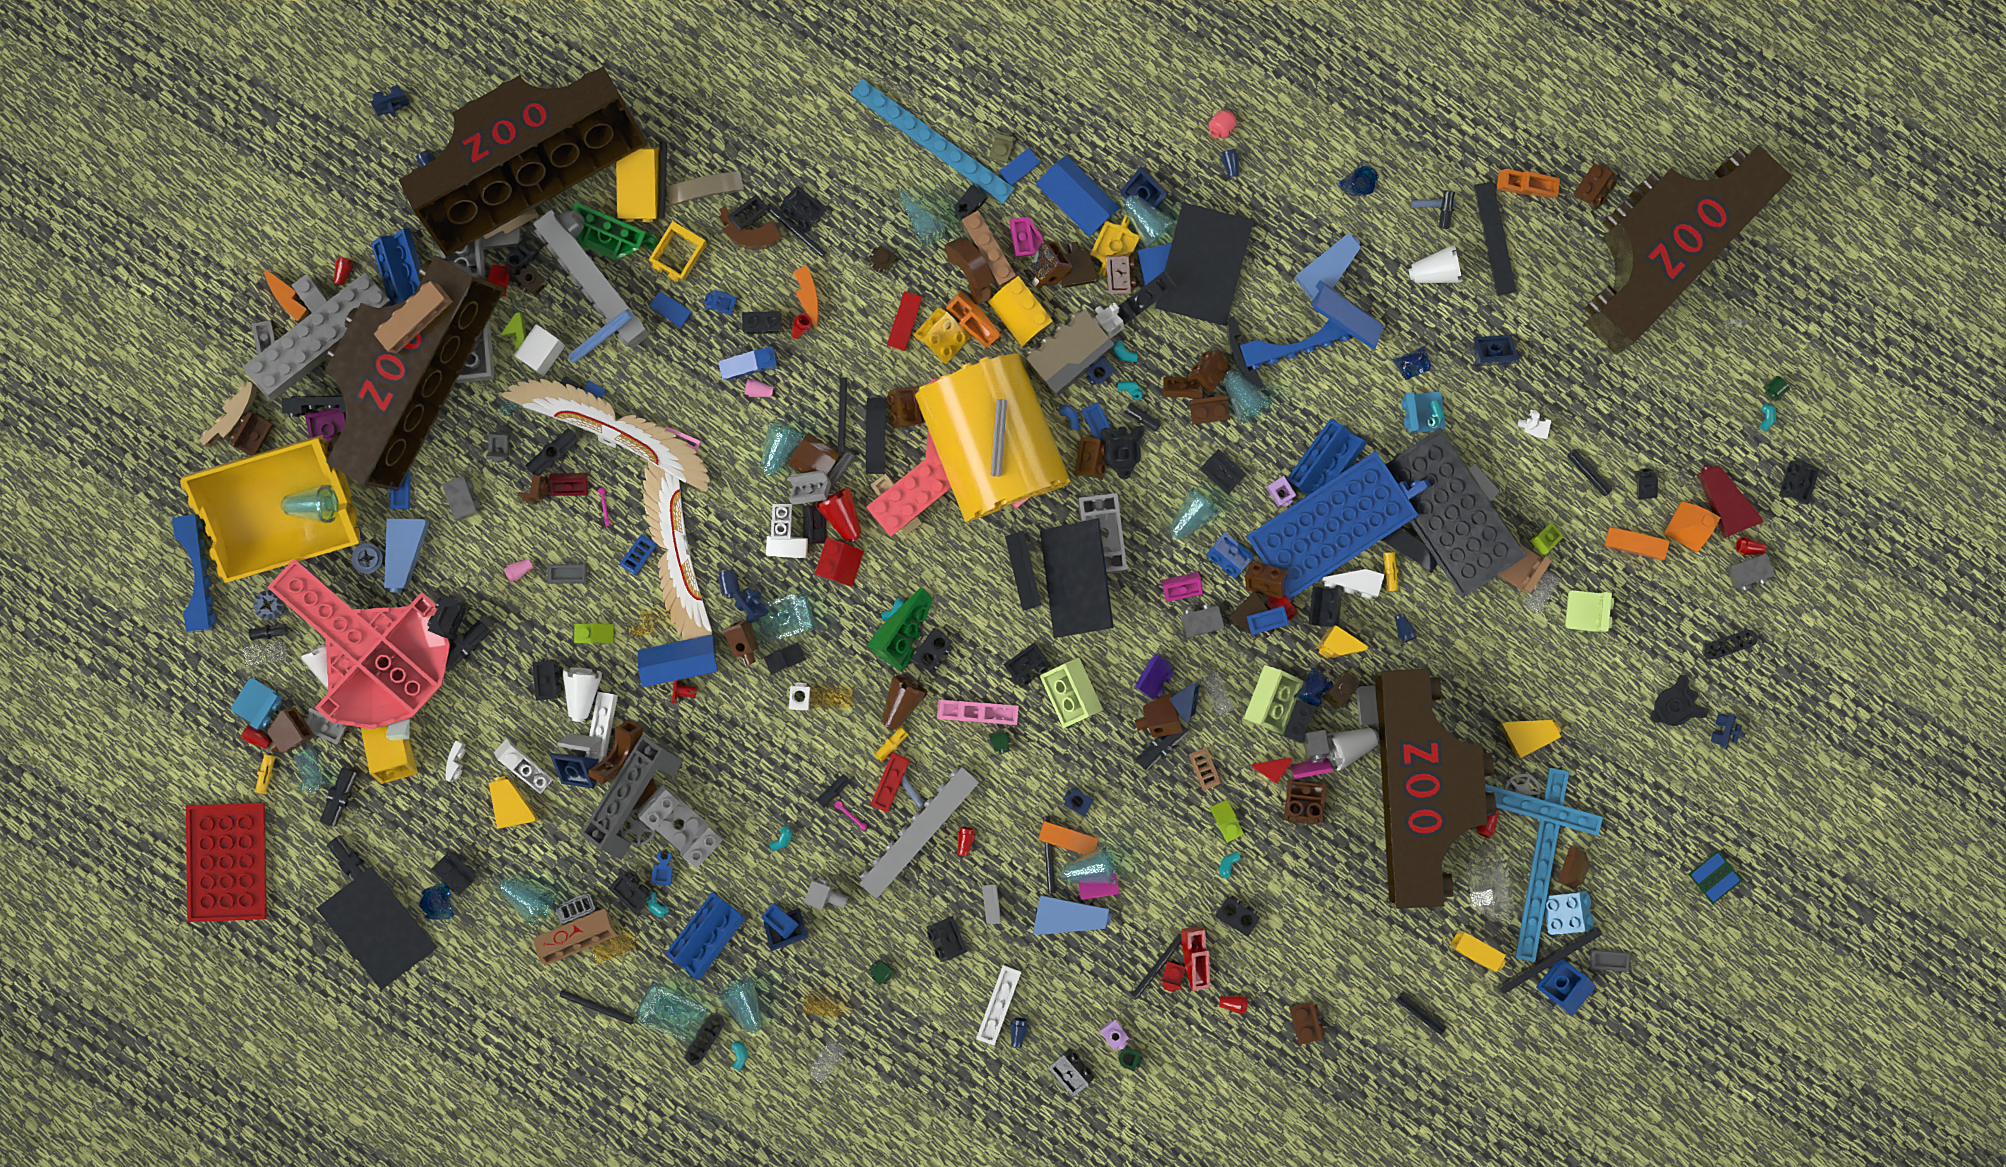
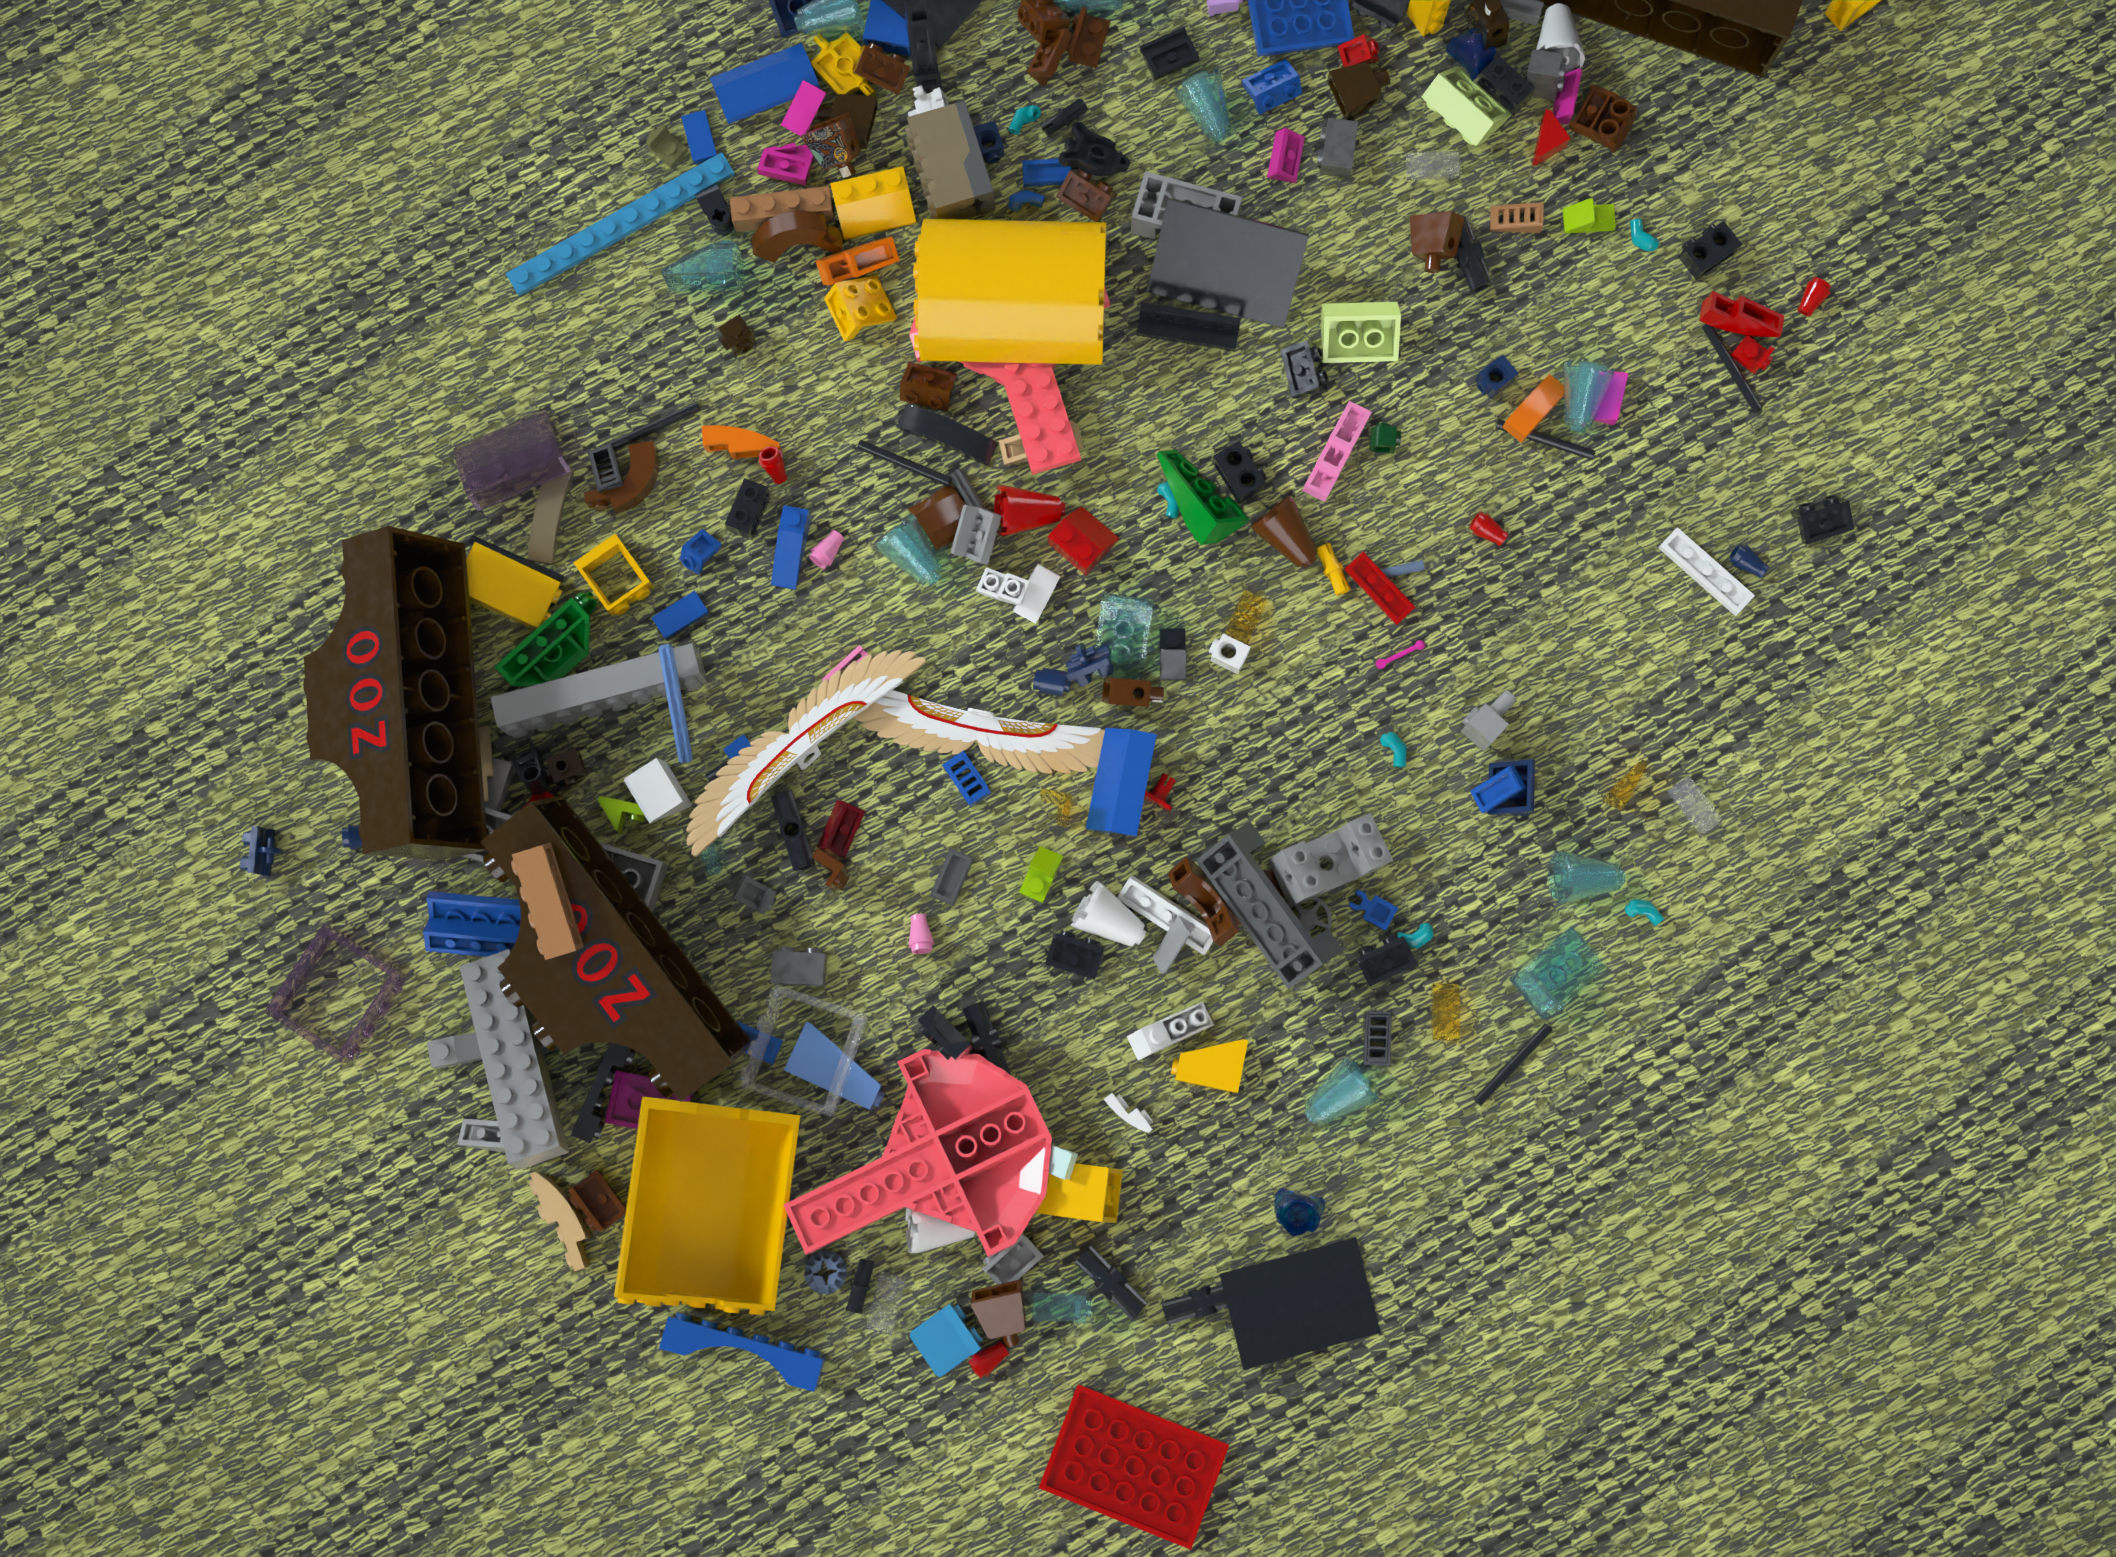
camera: 60 degrees left, 5 degrees down
(265, 773) = (1041, 1367): yellow pin -> none
(286, 297) = (445, 1082): orange slope -> none
(312, 504) = (722, 1158): clear light blue cone -> none
(323, 168) = (304, 968): none -> window
(343, 267) = (442, 998): red cone -> none
(360, 553) = (812, 1127): sand blue gear -> none
(393, 495) = (758, 1047): none -> clear window
(454, 873) = (1270, 1173): black bracket -> none
(571, 222) = (517, 677): dark grey piece -> none
(574, 769) = (1204, 964): dark blue slope -> none
(574, 937) = (1414, 1052): medium nougat brick -> none
(601, 491) = (867, 792): dark pink hinge -> none
(692, 1048) = (1617, 946): black beam -> none
(705, 935) = (1478, 890): blue slope -> none
(728, 143) = (510, 460): none -> clear purple slope
(802, 208) = (630, 407): black bracket -> none
(814, 525) = (1022, 552): black slope -> none
(833, 790) = (1361, 661): black axle -> none
(881, 972) = (1610, 693): dark green plate -> none
(904, 321) = (823, 344): red tile -> none
(919, 832) = (1456, 579): light grey brick -> none
(946, 939) = (1601, 601): black bracket -> none
(991, 904) = (1579, 528): light grey slope -> none
(998, 441) = (1022, 262): light grey axle -> none
(1062, 916) = (1629, 449): medium blue slope -> none
(1068, 232) = (803, 108): none -> dark pink slope
(1114, 1027) = (1790, 454): lavender brick -> none
(1122, 353) = (978, 109): teal arm -> none
(1130, 1058) = (1833, 443): dark green plate -> none
(1153, 677) = (1380, 227): dark purple slope -> none
(1186, 700) = (1426, 196): dark blue slope -> none
(1265, 579) = (1321, 52): reddish brown bracket -> none
(1267, 620) = (1371, 68): blue tile -> none
(1306, 1022) = (1869, 223): reddish brown bracket -> none
(1420, 1013) = (1908, 92): black axle -> none

